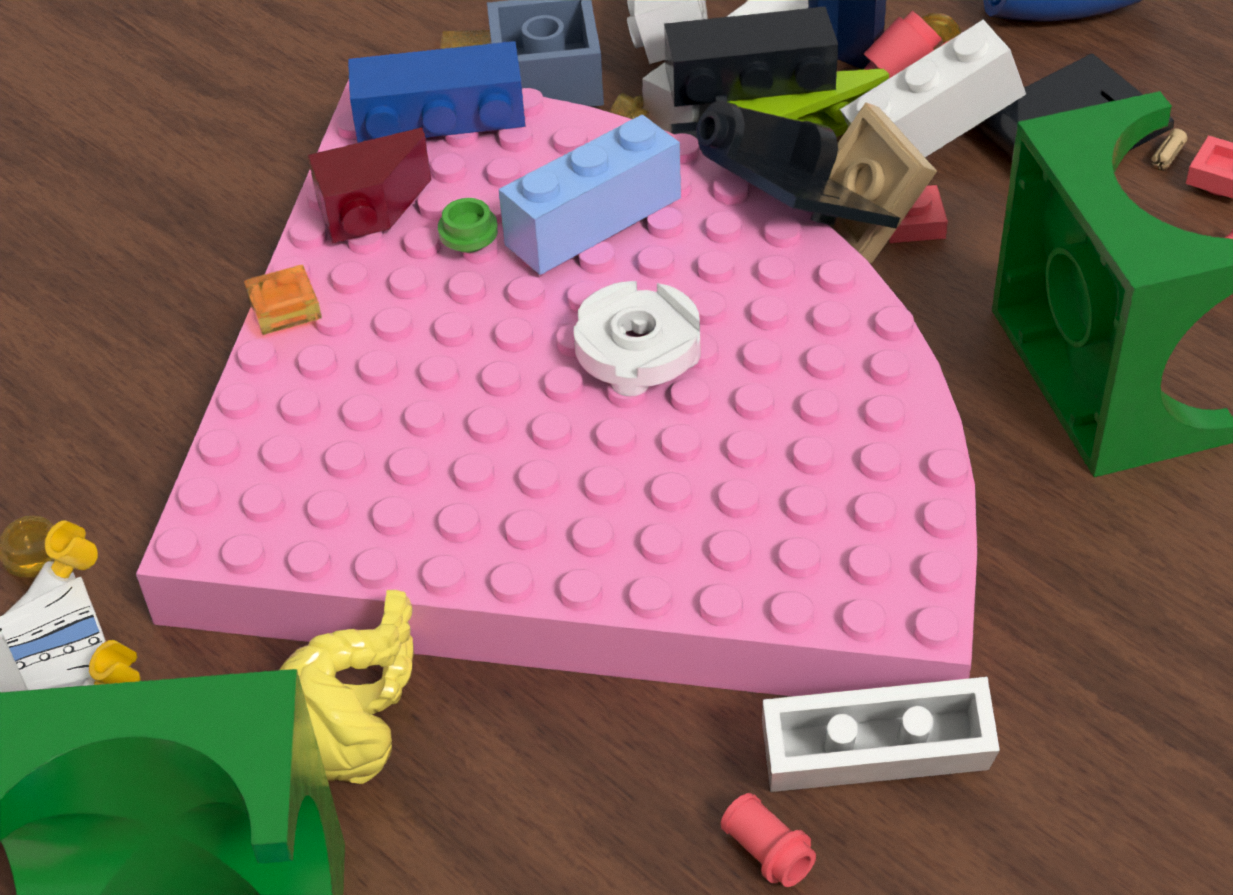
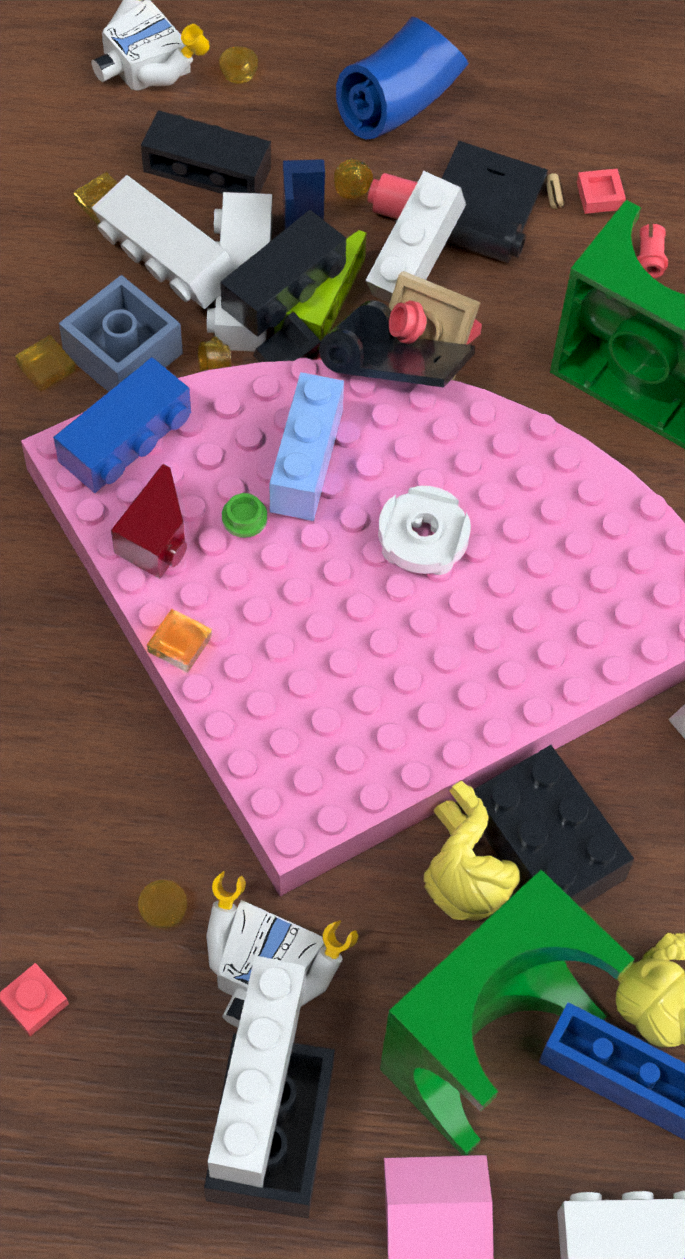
camera: 45 degrees left, 15 degrees up
(476, 746) = (552, 825): none -> black brick
(839, 155) = (407, 321): none -> coral plate
(902, 44) = (348, 204): coral brick -> none

